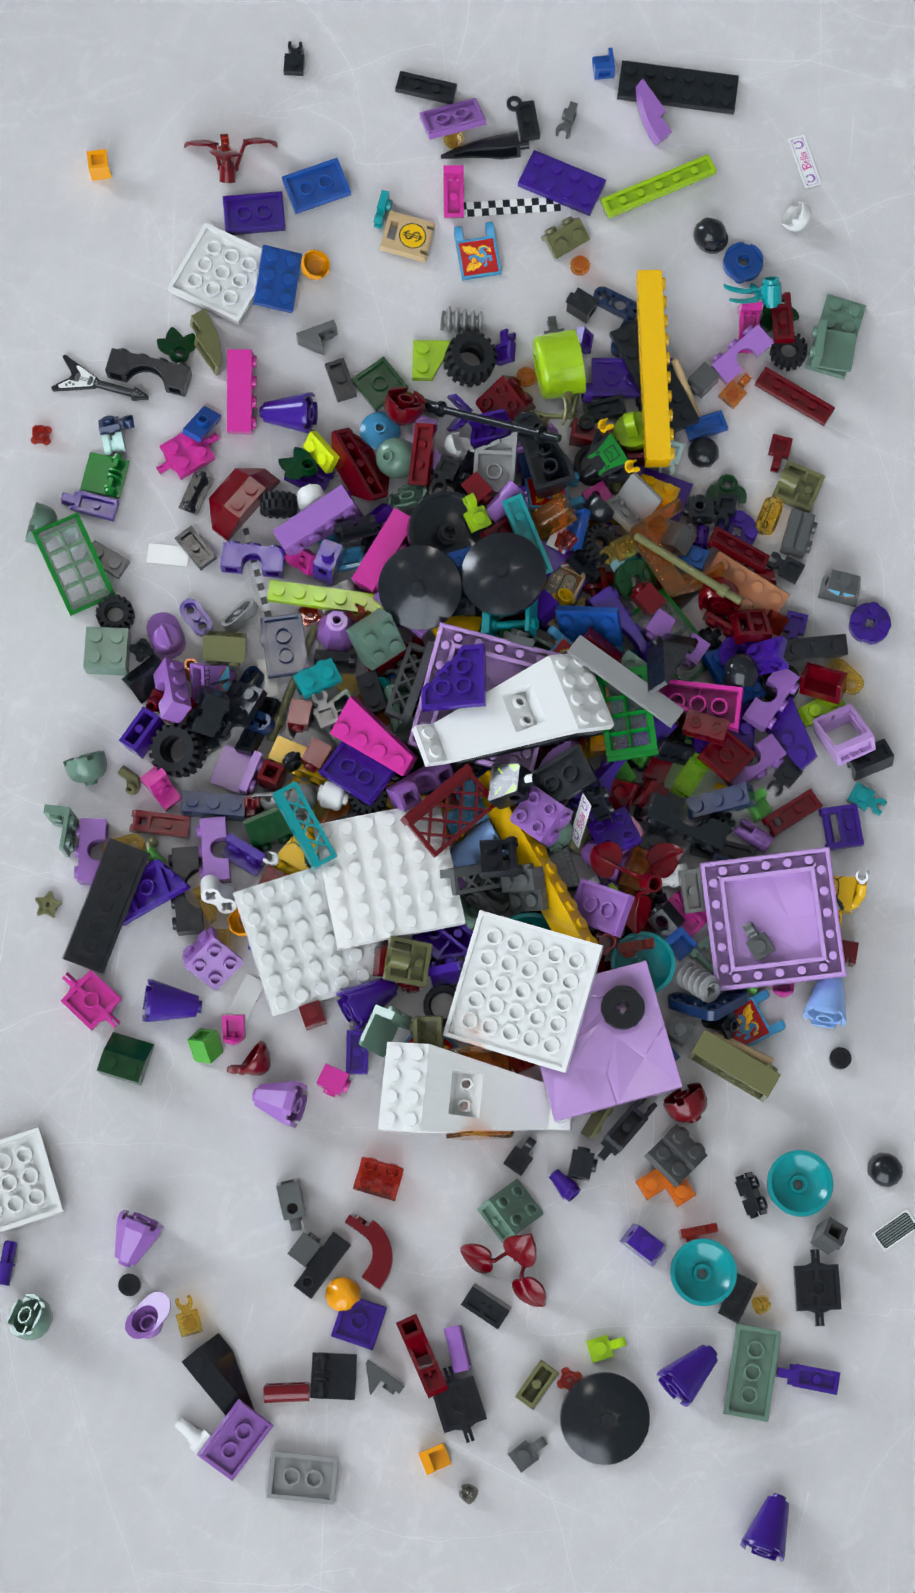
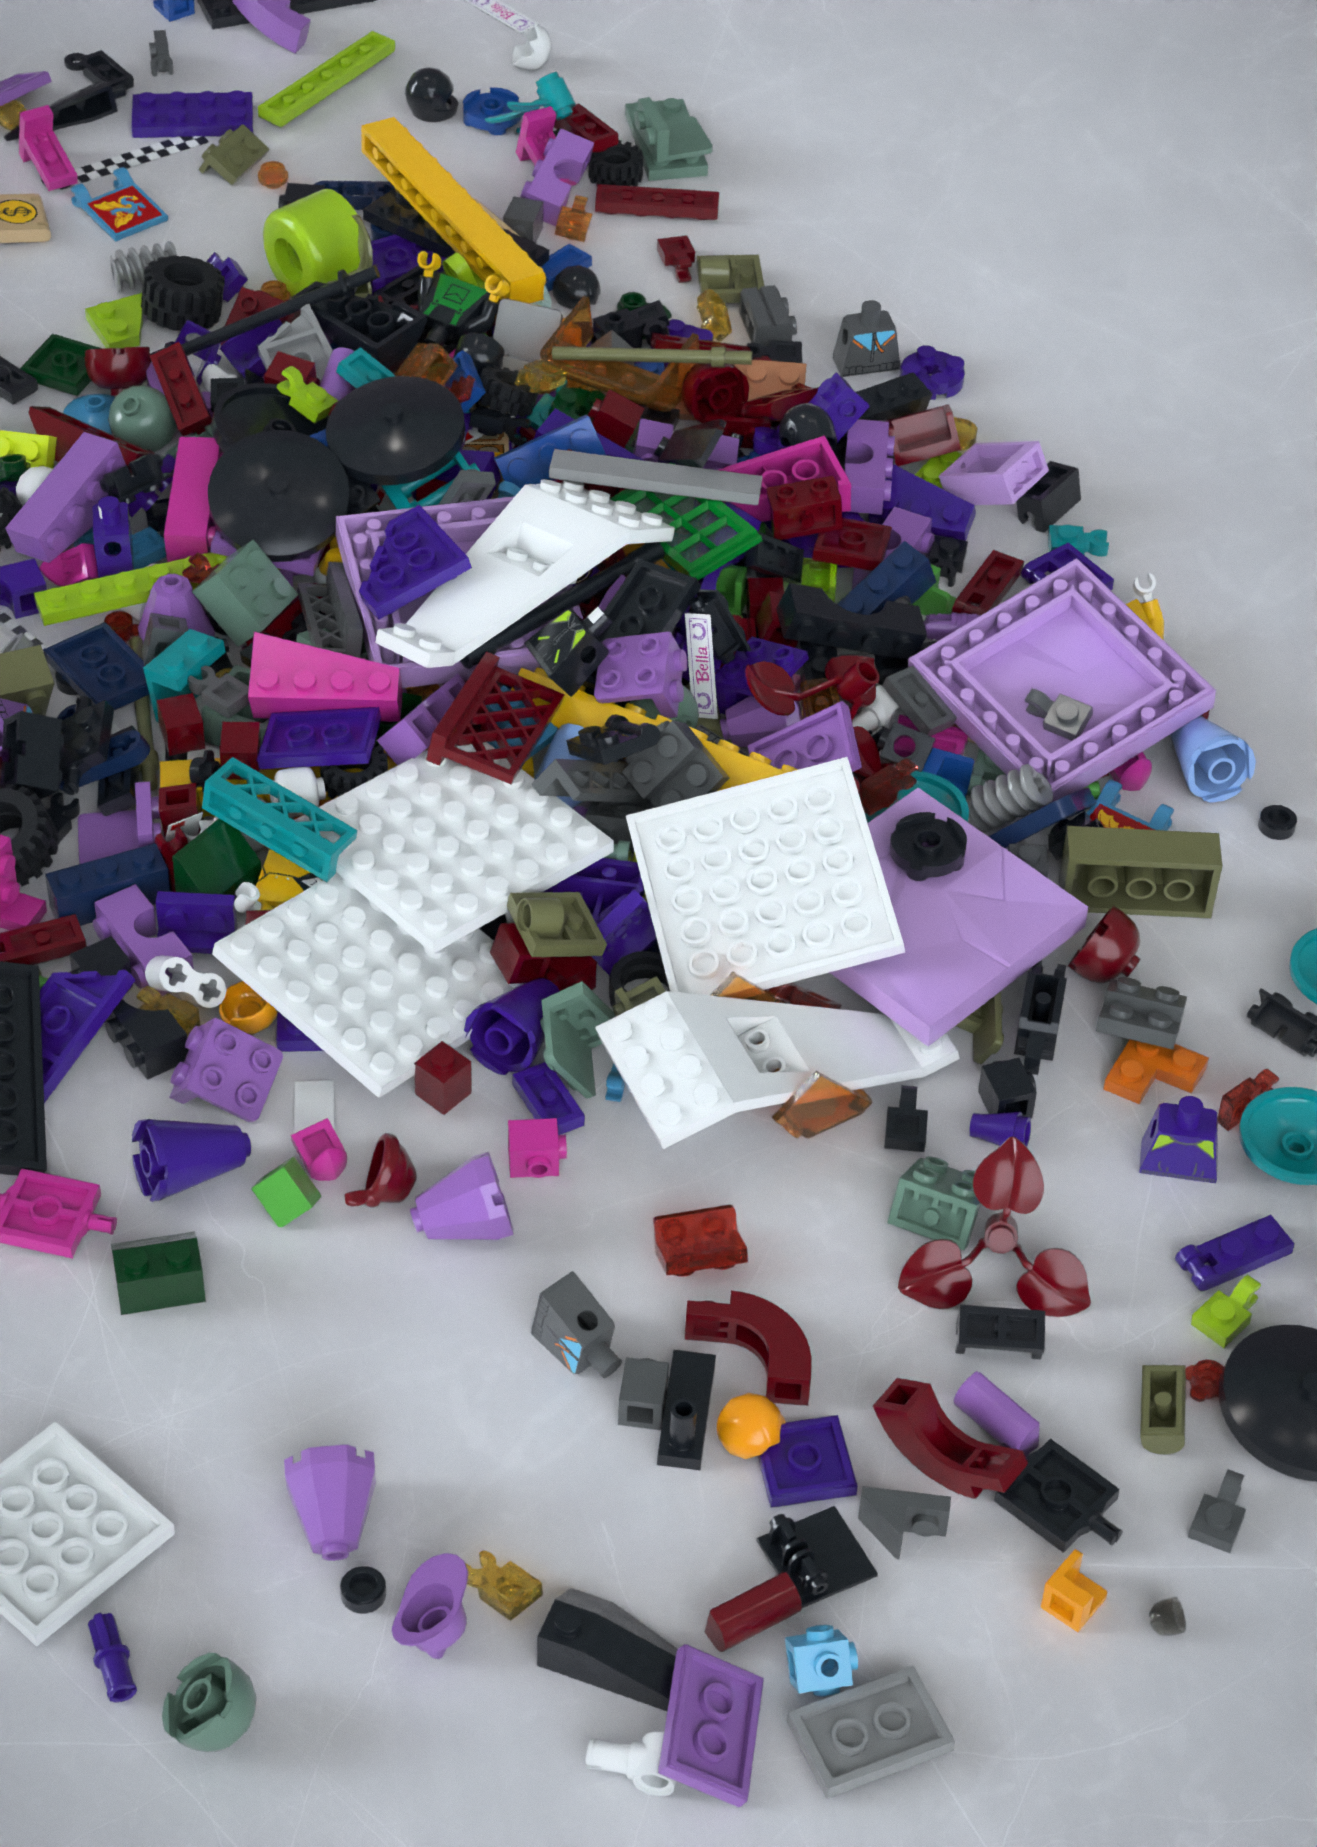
camera: 30 degrees left, 30 degrees down
(299, 1435) = (820, 1660): none -> medium azure brick
(321, 646) = (161, 633): none -> dark grey panel
(632, 1315) = (1235, 1253): none -> dark purple plate

